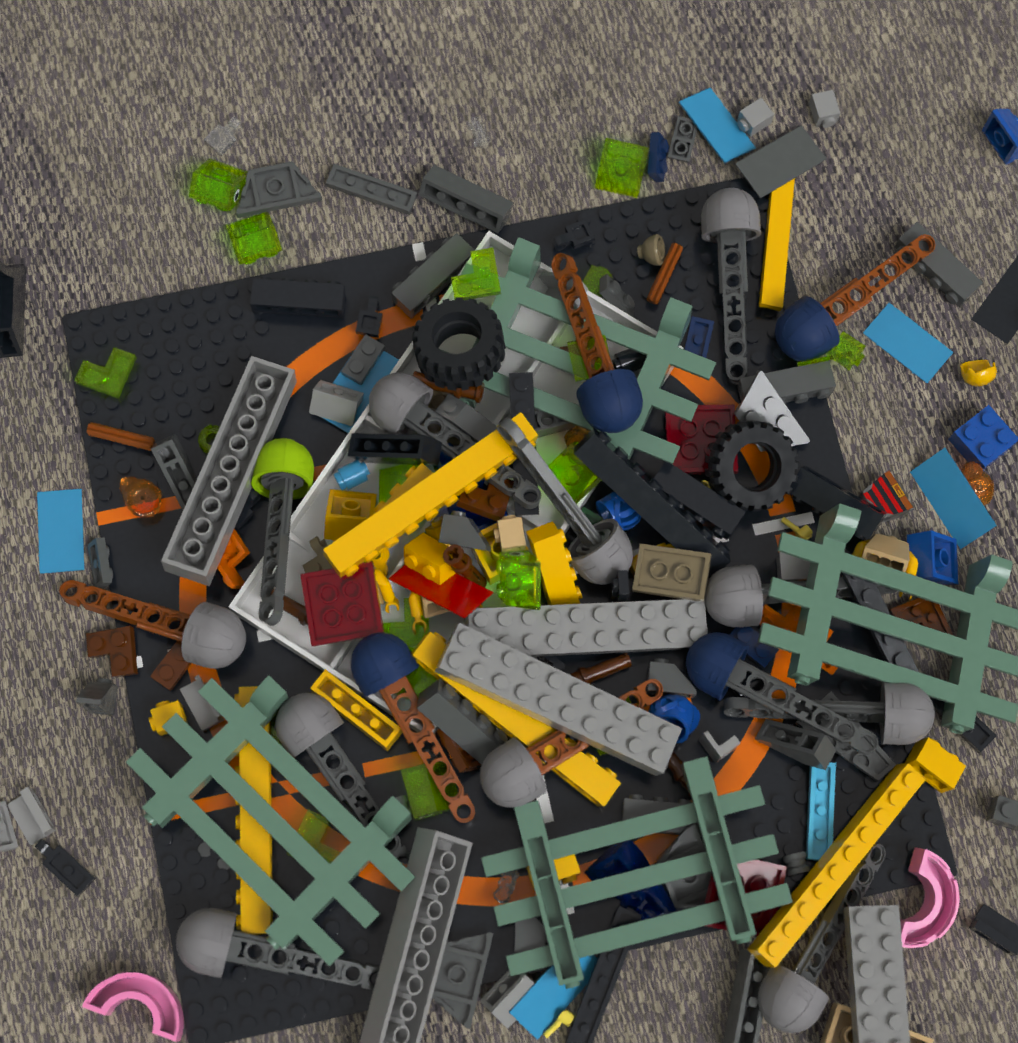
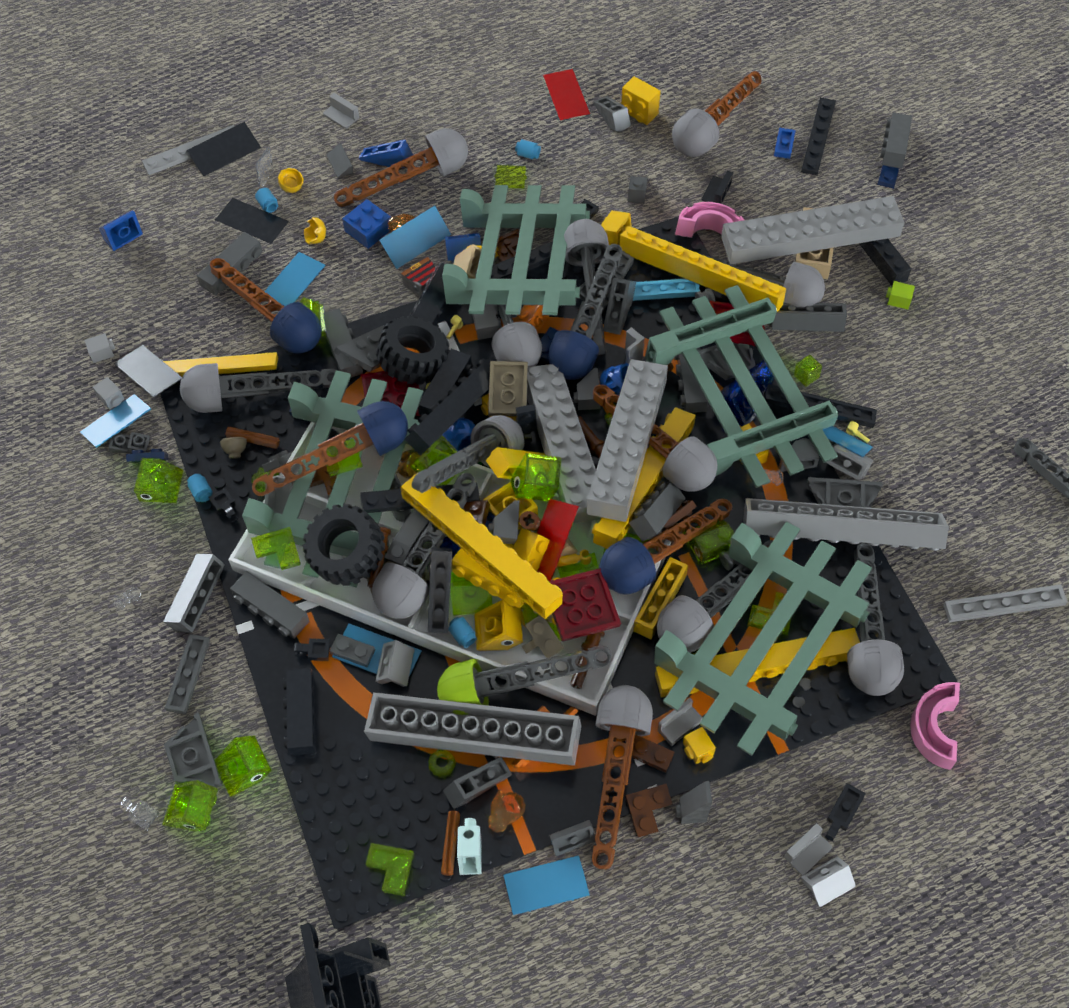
camera: 95 degrees left, 15 degrees down
(98, 448) = (469, 848): none -> light aqua torso
(510, 534) = (500, 491): tan brick -> none
(600, 210) = (199, 488): none -> dark azure brick
(661, 978) = (807, 370): none -> clear neon green brick

